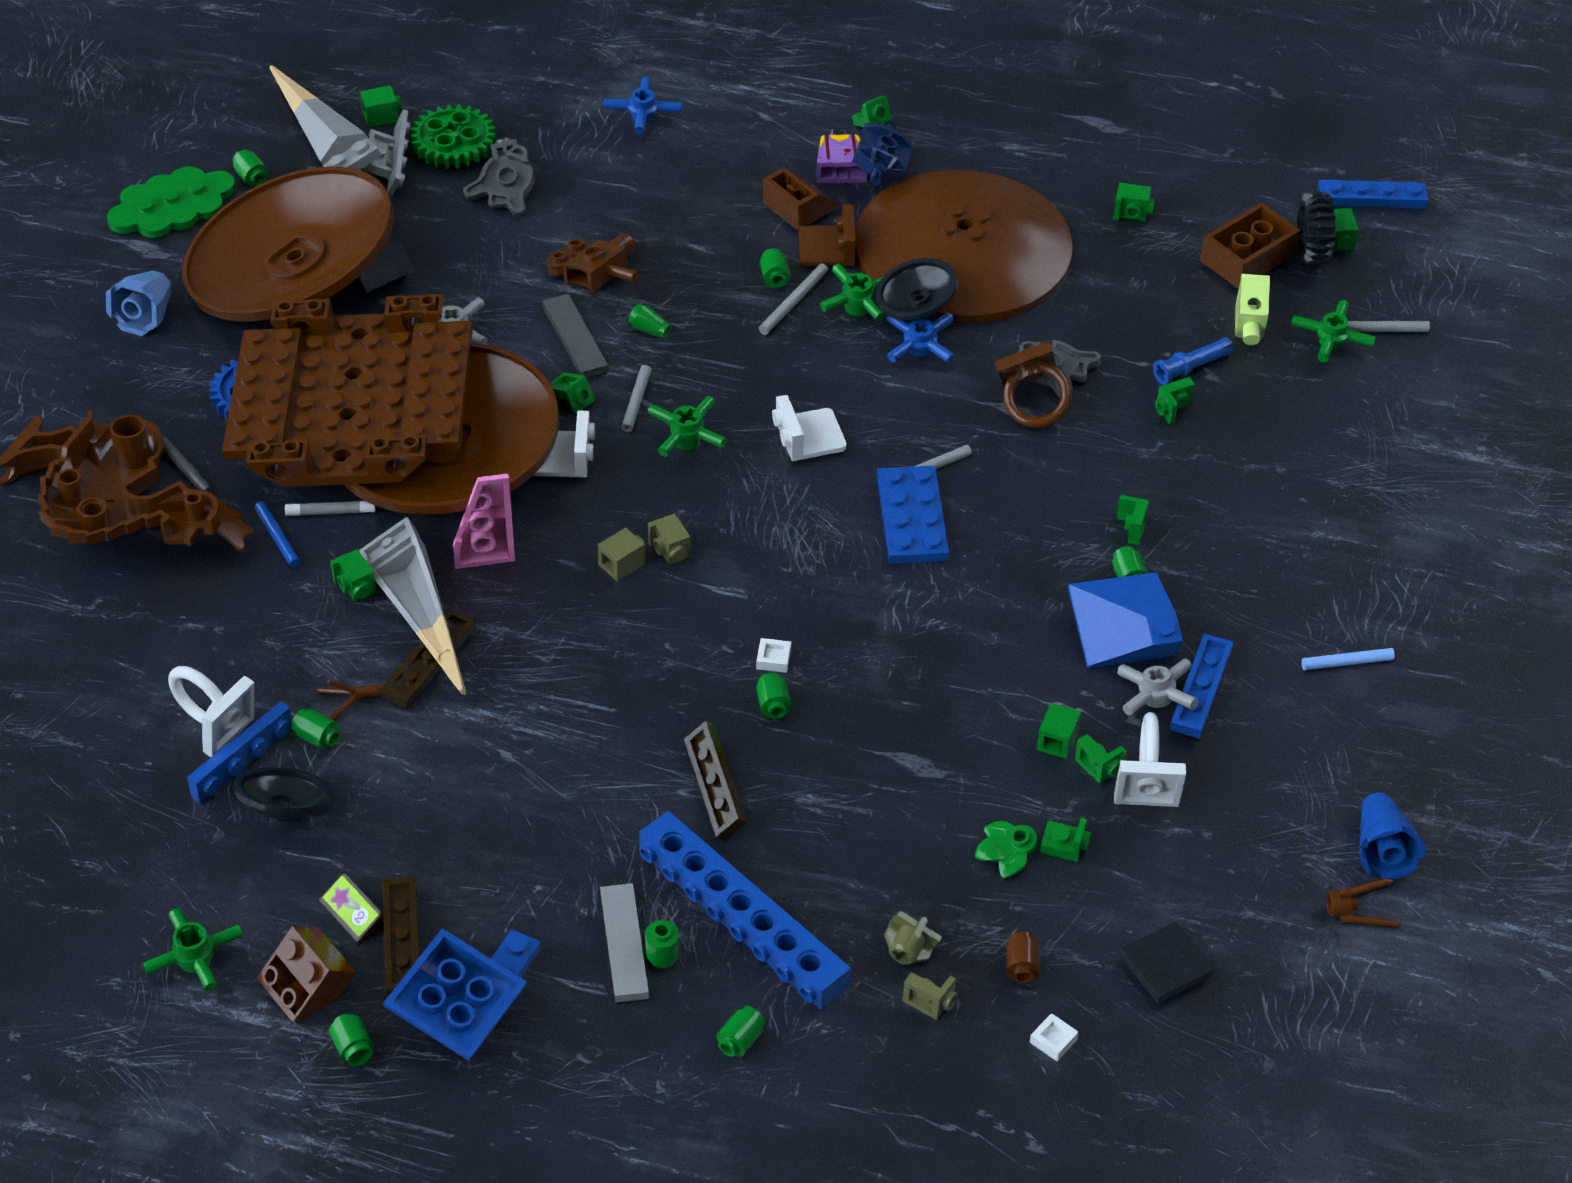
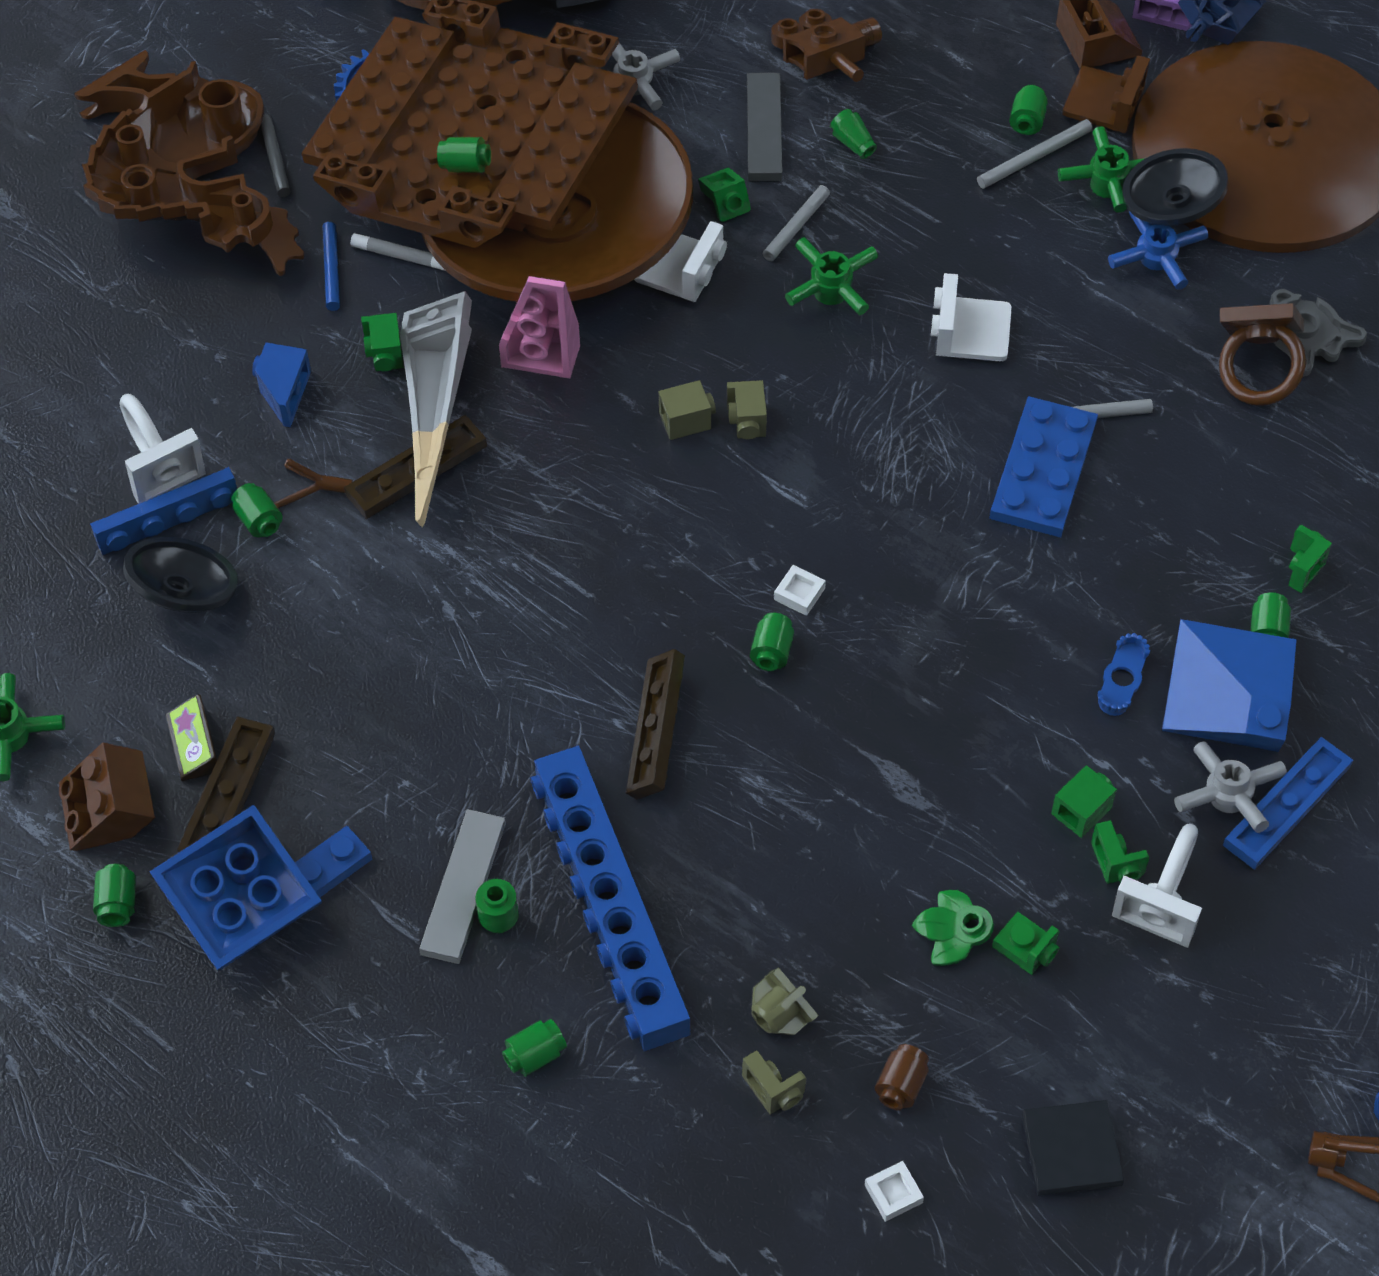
camera: 25 degrees right, 10 degrees up
(283, 627) = (282, 378): none -> blue slope
(363, 413) = (464, 154): none -> green brick
(1041, 624) = (1129, 656): none -> blue piece

